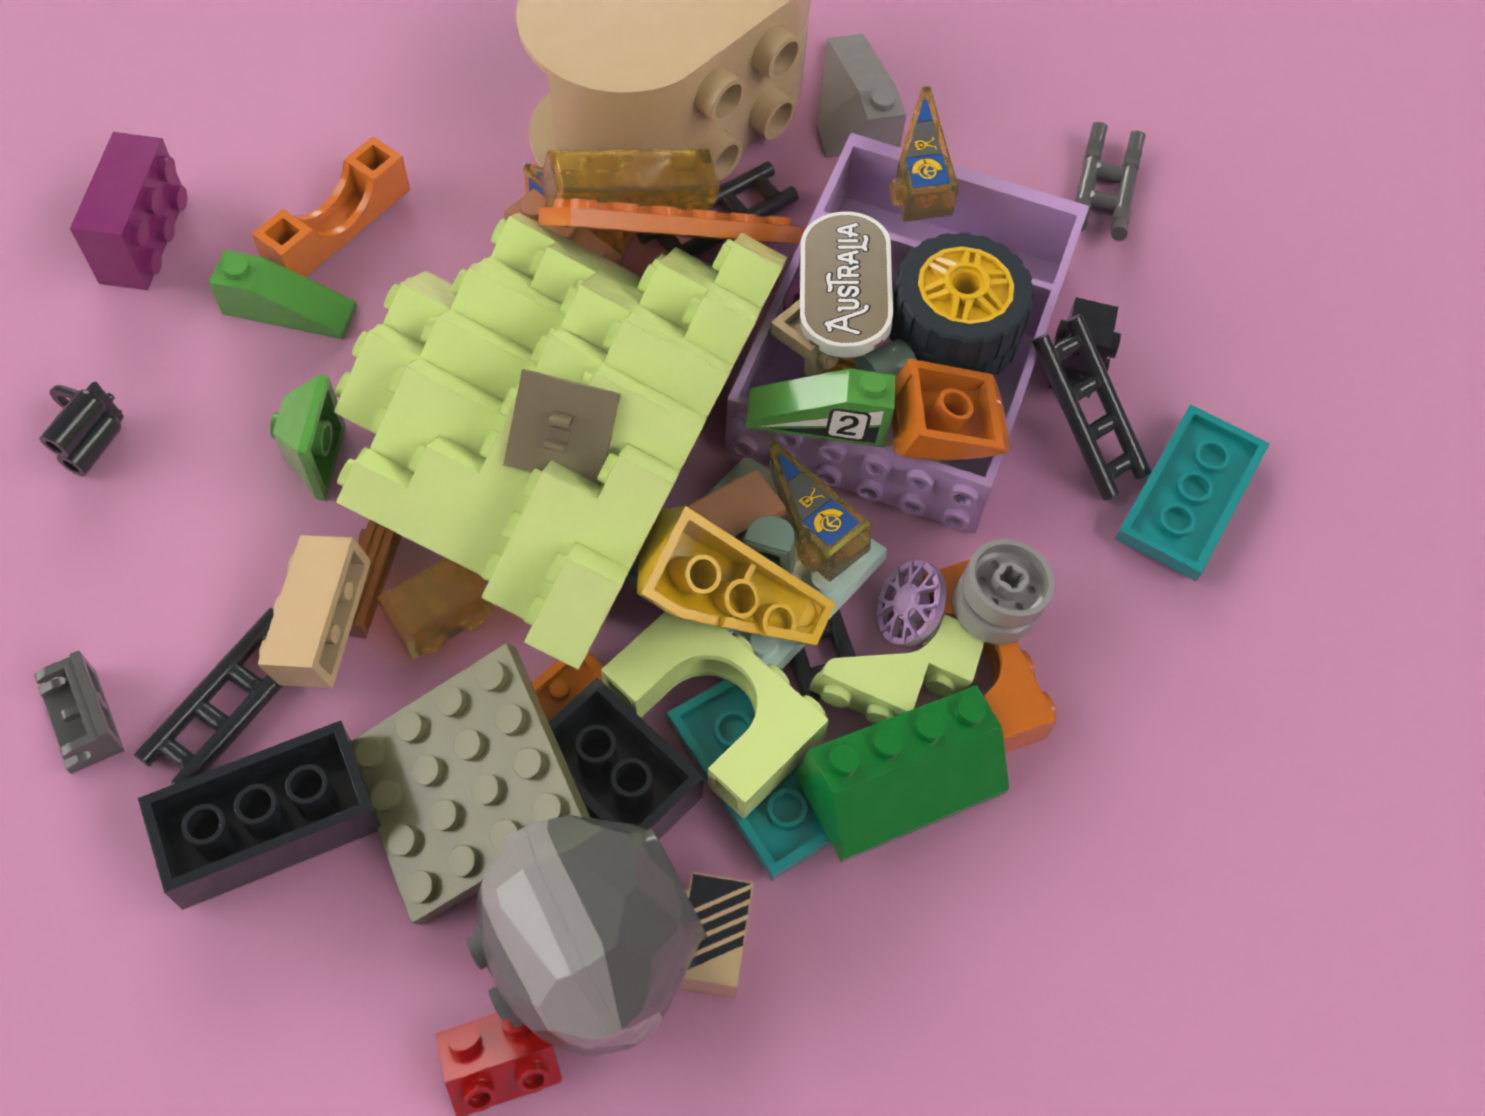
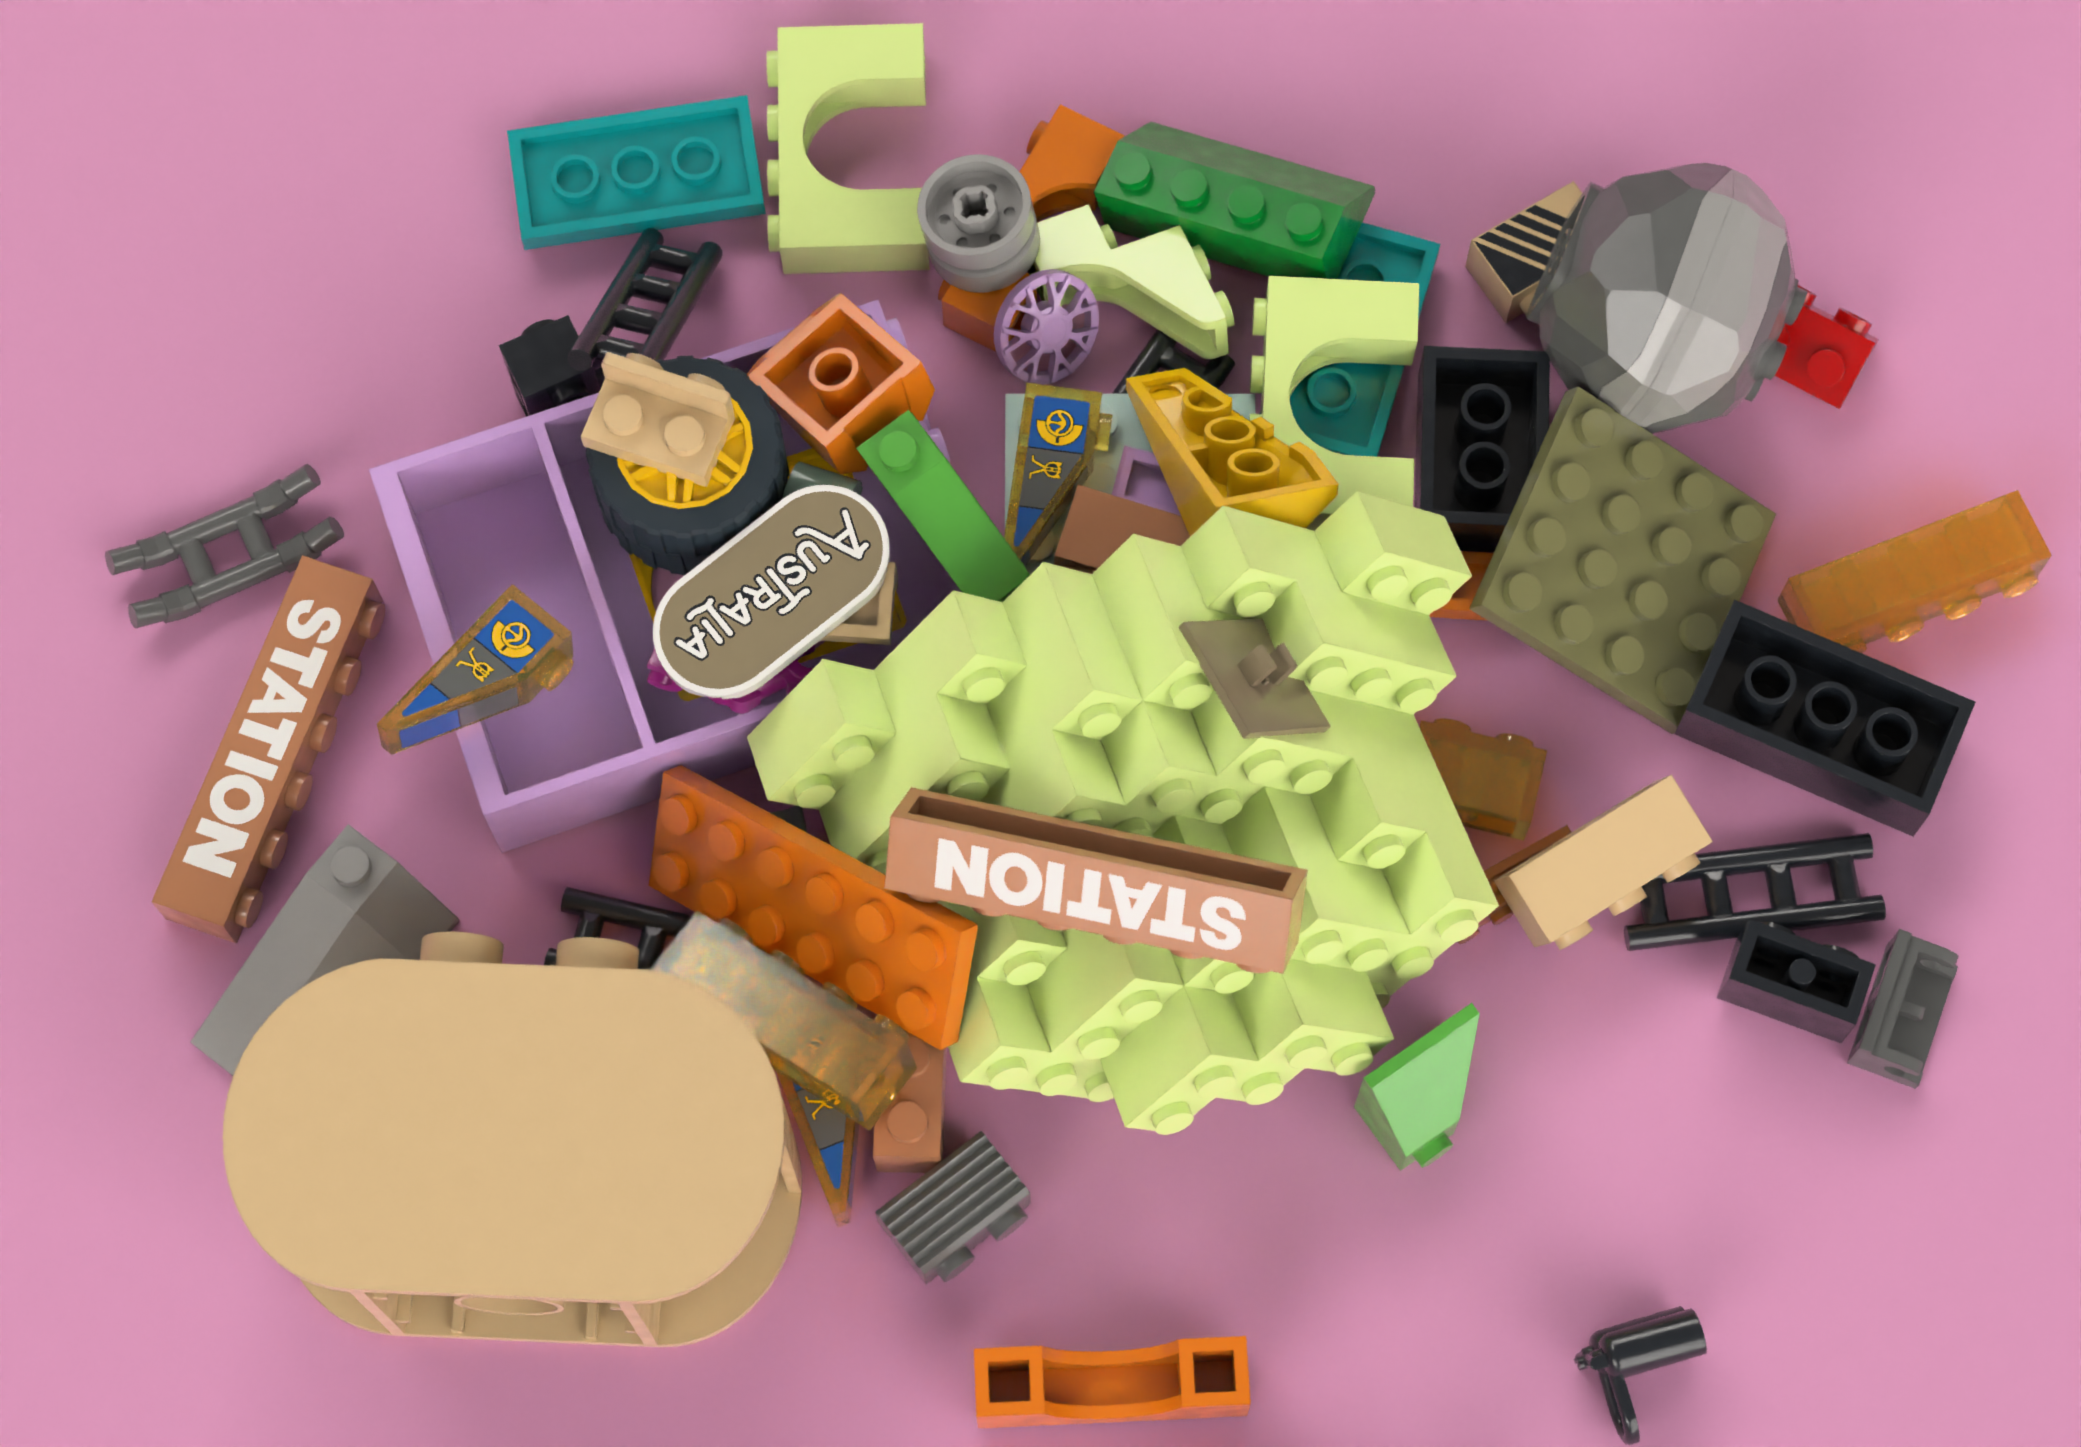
camera: 125 degrees left, 10 degrees up
(149, 658) = (1796, 980): none -> black brick
(275, 295) = (1280, 1332): bright green slope -> none
(283, 966) = (1920, 575): none -> clear yellow brick
(476, 214) = (955, 1210): none -> dark grey brick
(526, 272) = (1096, 880): none -> nougat brick
(774, 540) = (1135, 464): sand green brick -> none
(974, 120) = (270, 750): none -> nougat brick
(988, 273) = (659, 417): none -> tan bracket
(1183, 610) = (818, 77): none -> yellowish green arch

